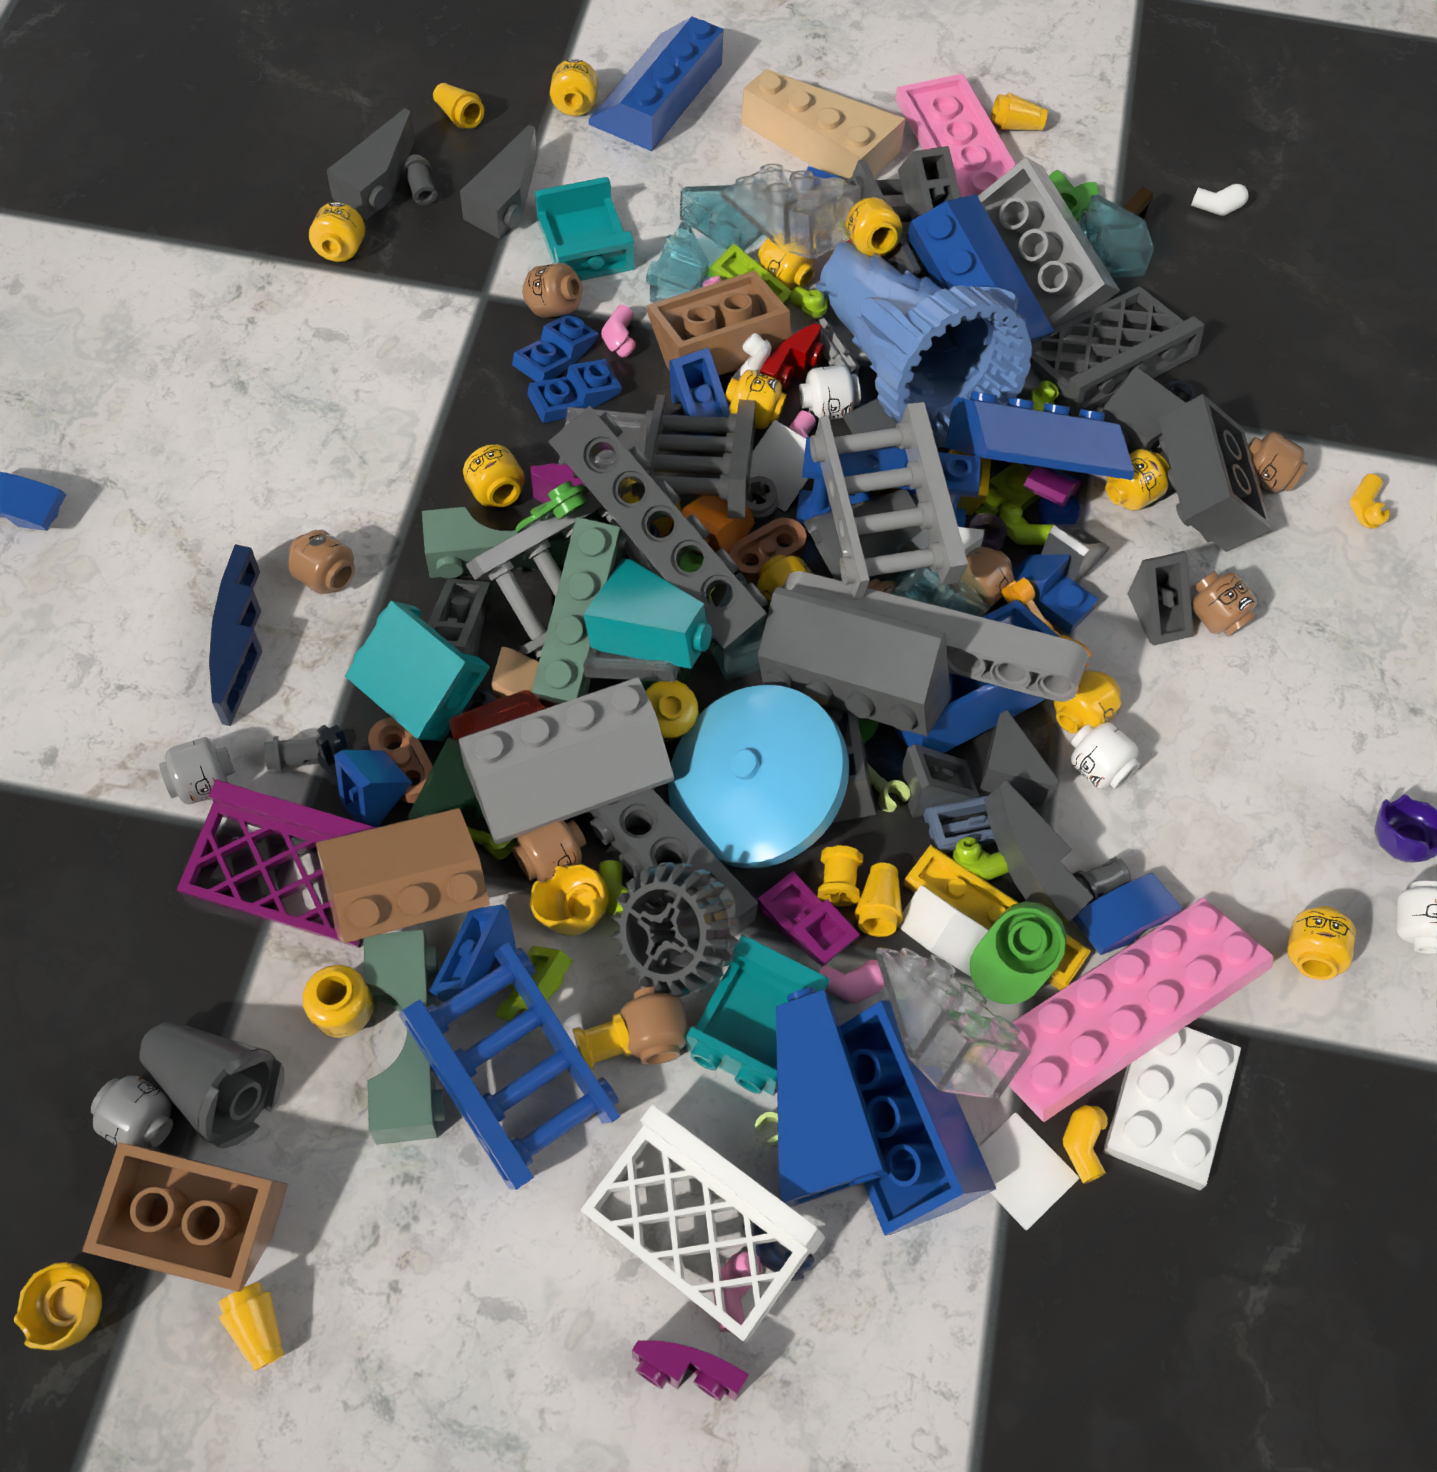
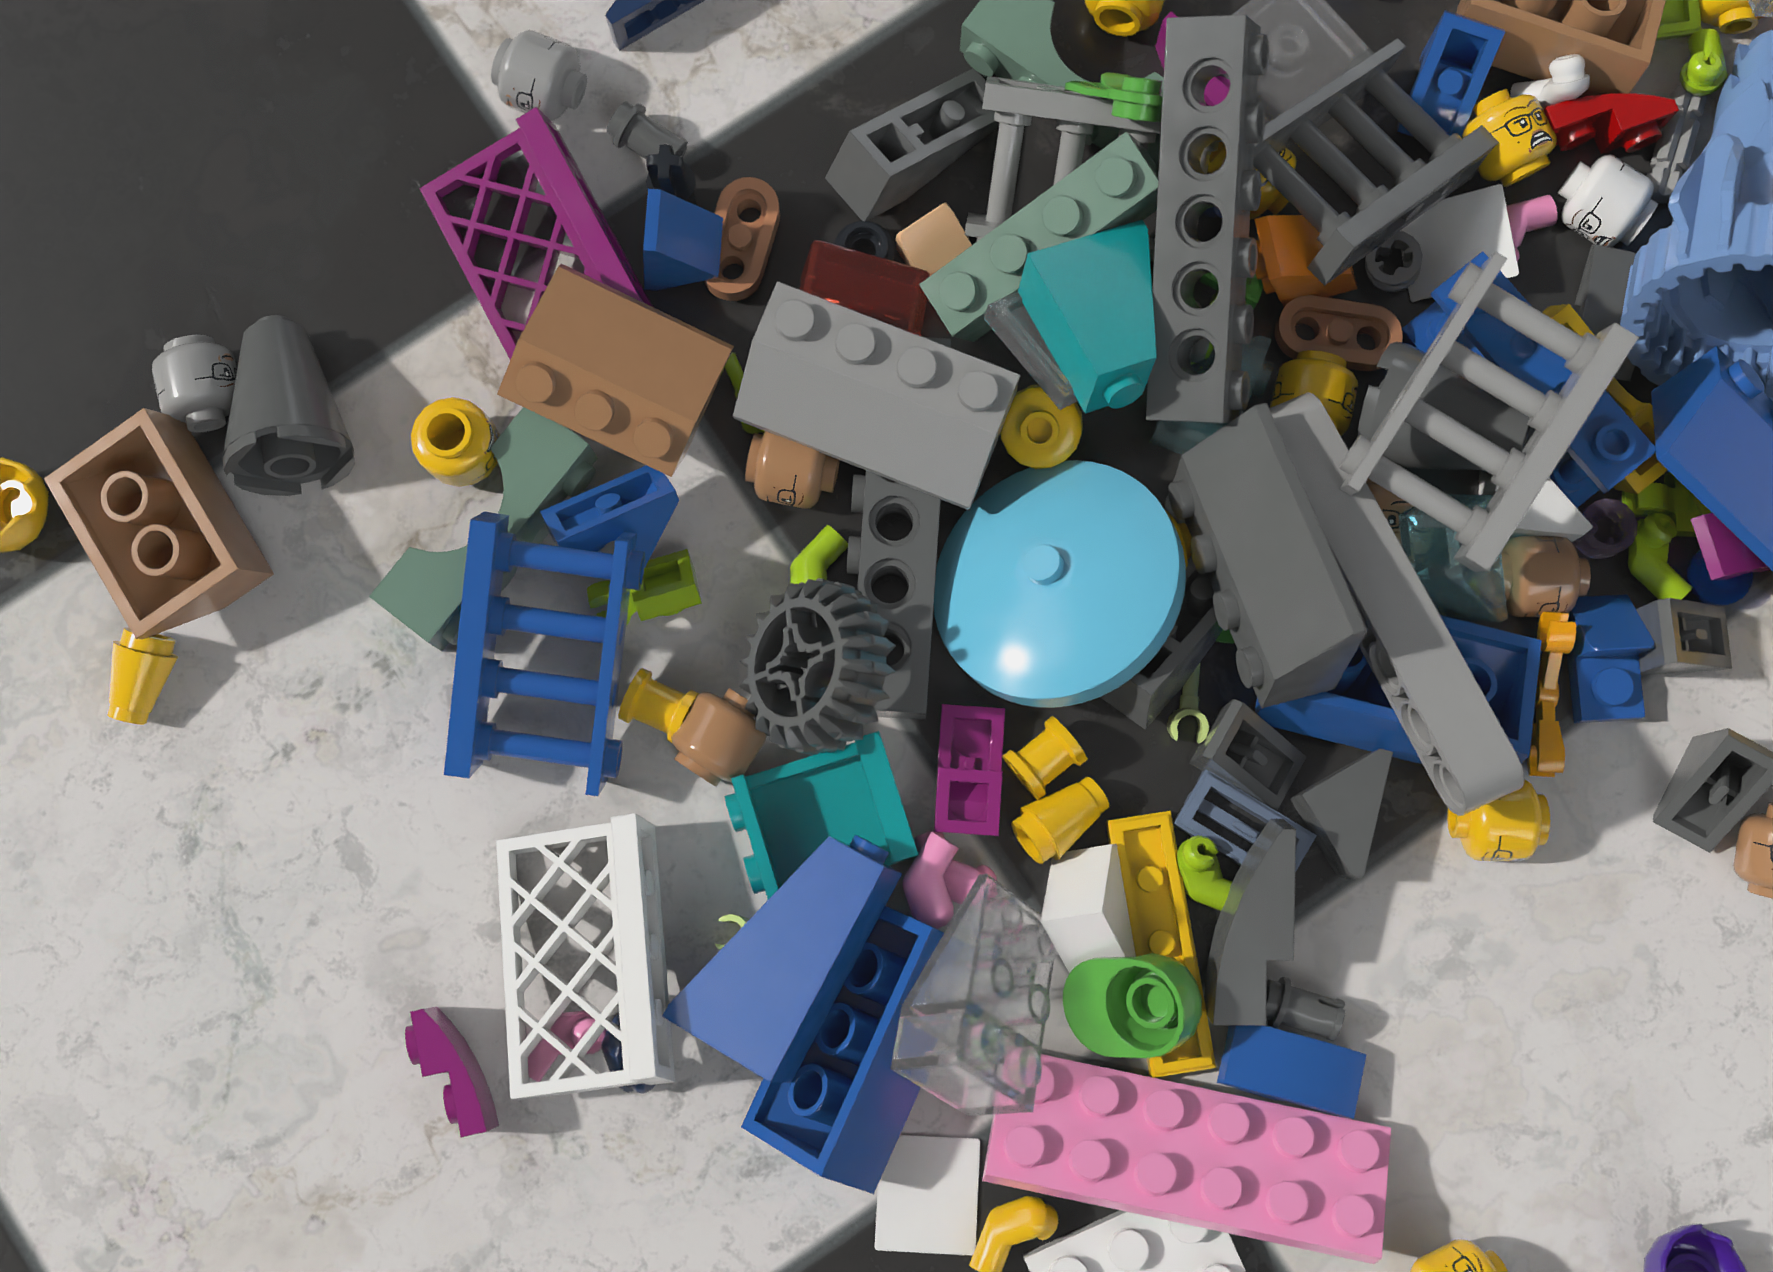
camera: 50 degrees right, 20 degrees up
(415, 672) = (824, 157): teal panel -> none
(447, 787) = (738, 311): clear green slope -> none
(570, 900) = (757, 538): yellow hair -> none
(847, 994) = (925, 882): none -> bright pink arm
(1104, 755) = (1453, 890): white head -> none

